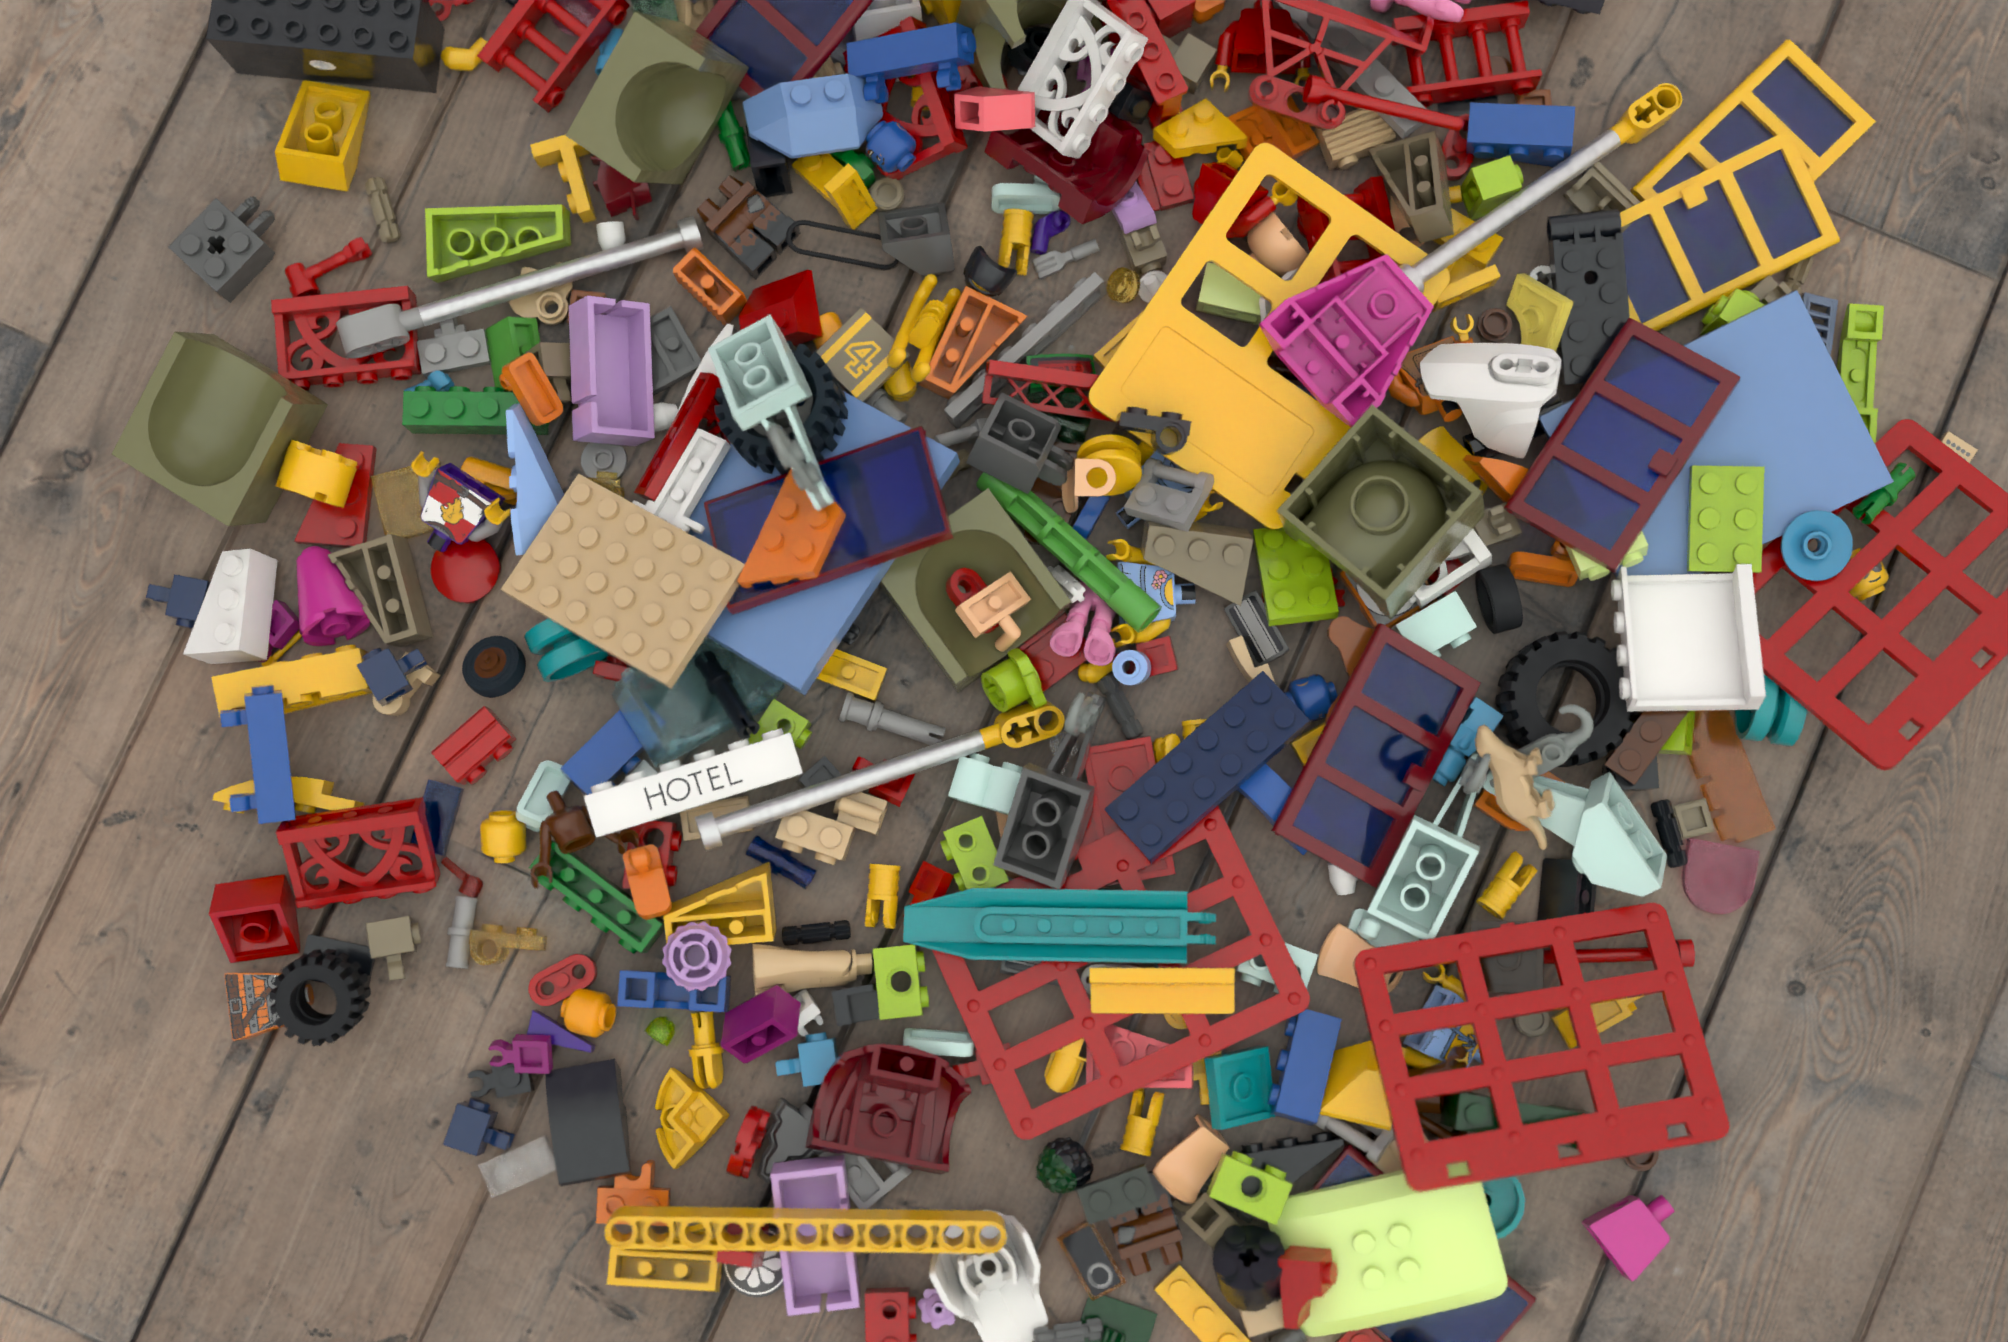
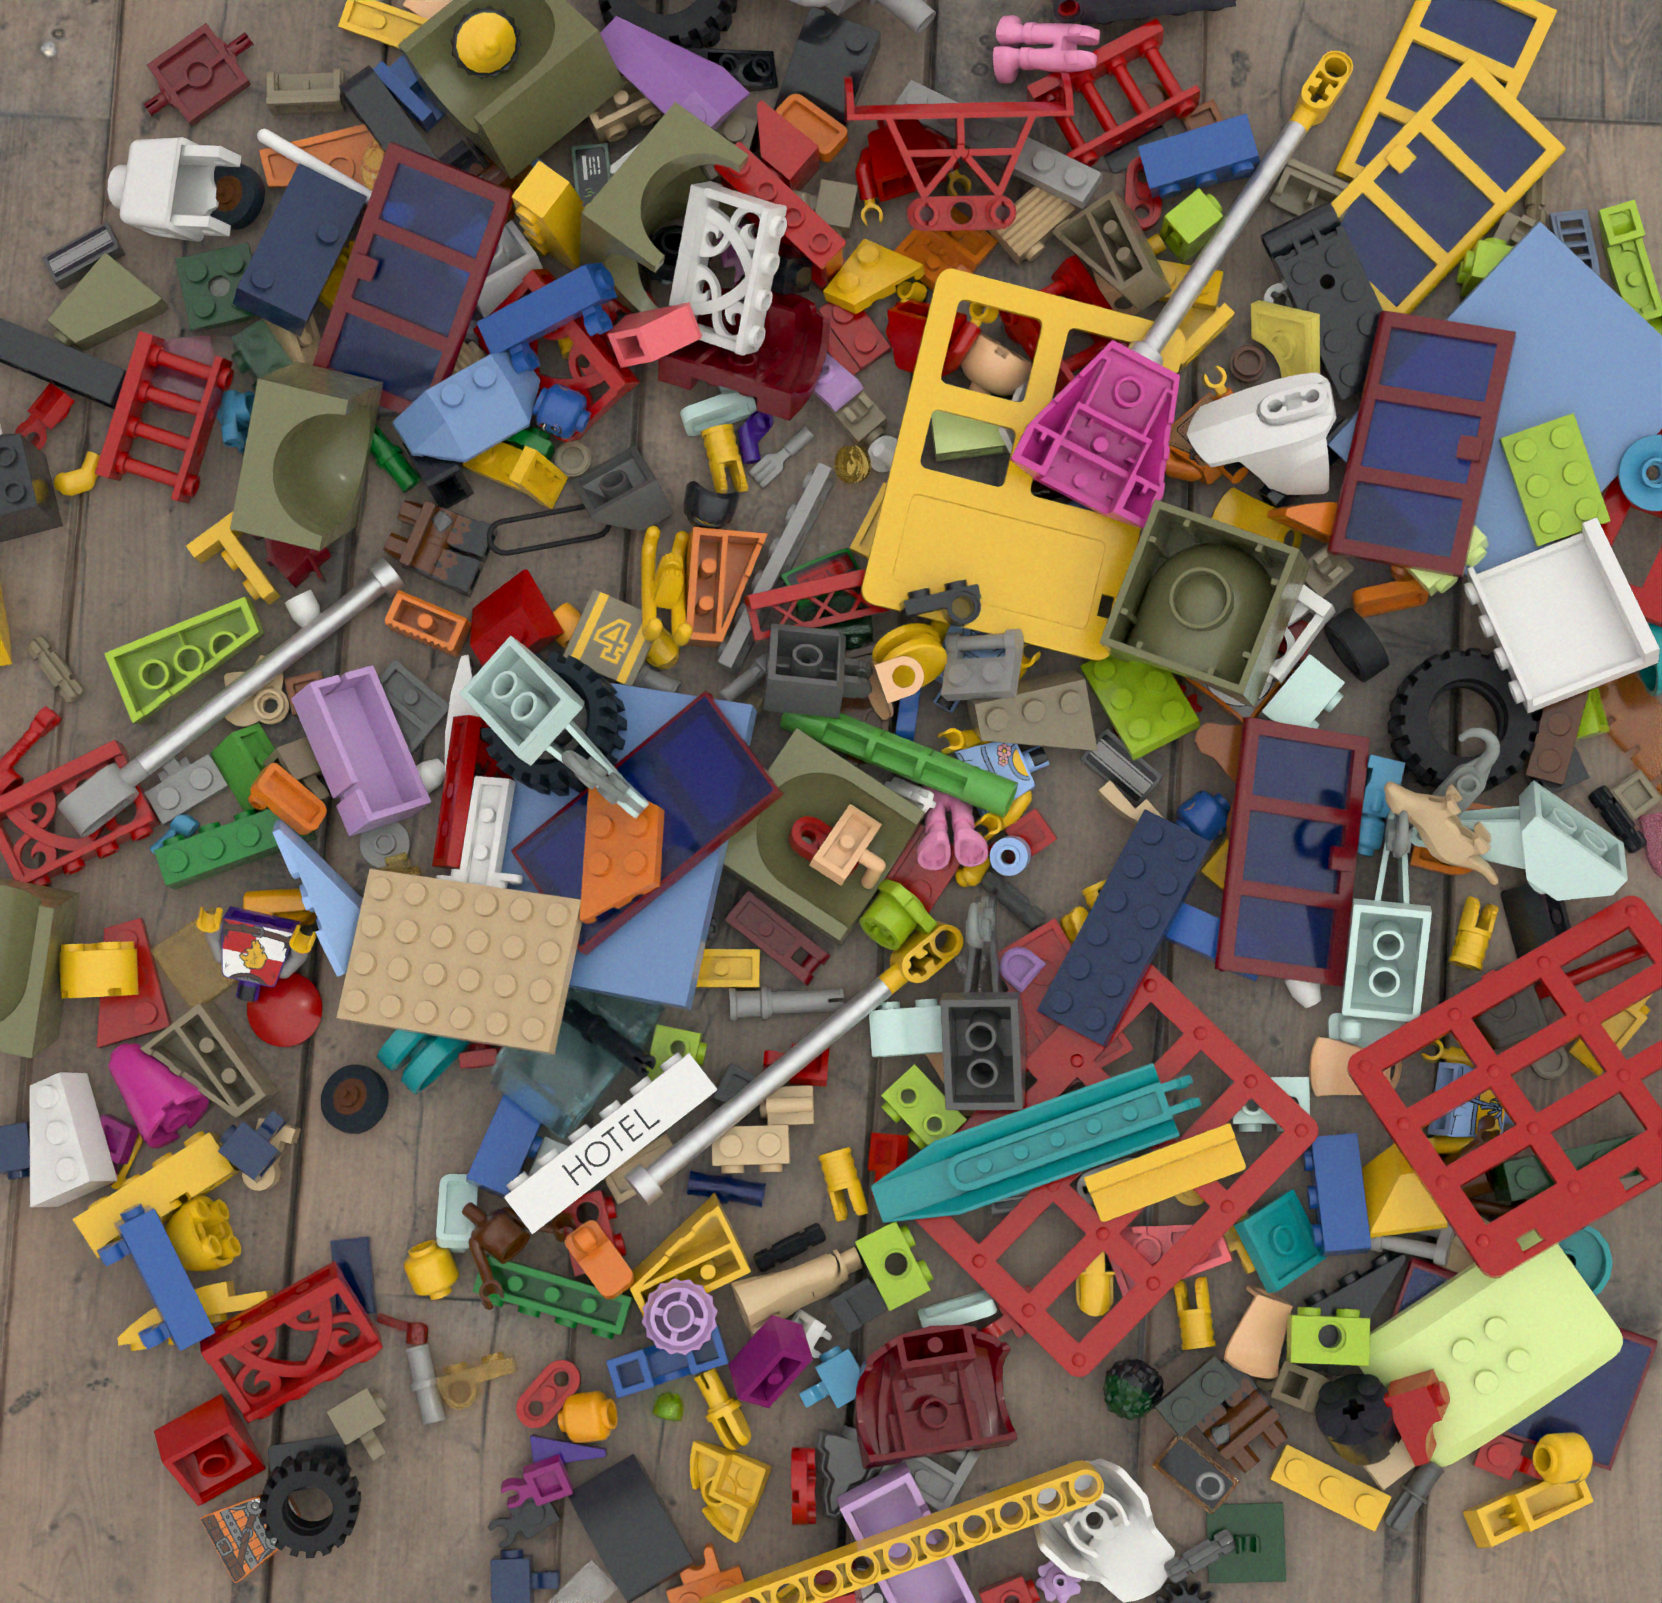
camera: 15 degrees left, 0 degrees up
(320, 733) = (203, 1234): none -> yellow piece
(474, 747) = (366, 1188): red brick -> none
(905, 663) = (776, 937): none -> dark red plate
(1104, 767) = (1020, 967): none -> medium lavender tile
(1319, 91) = (980, 195): red piece -> none

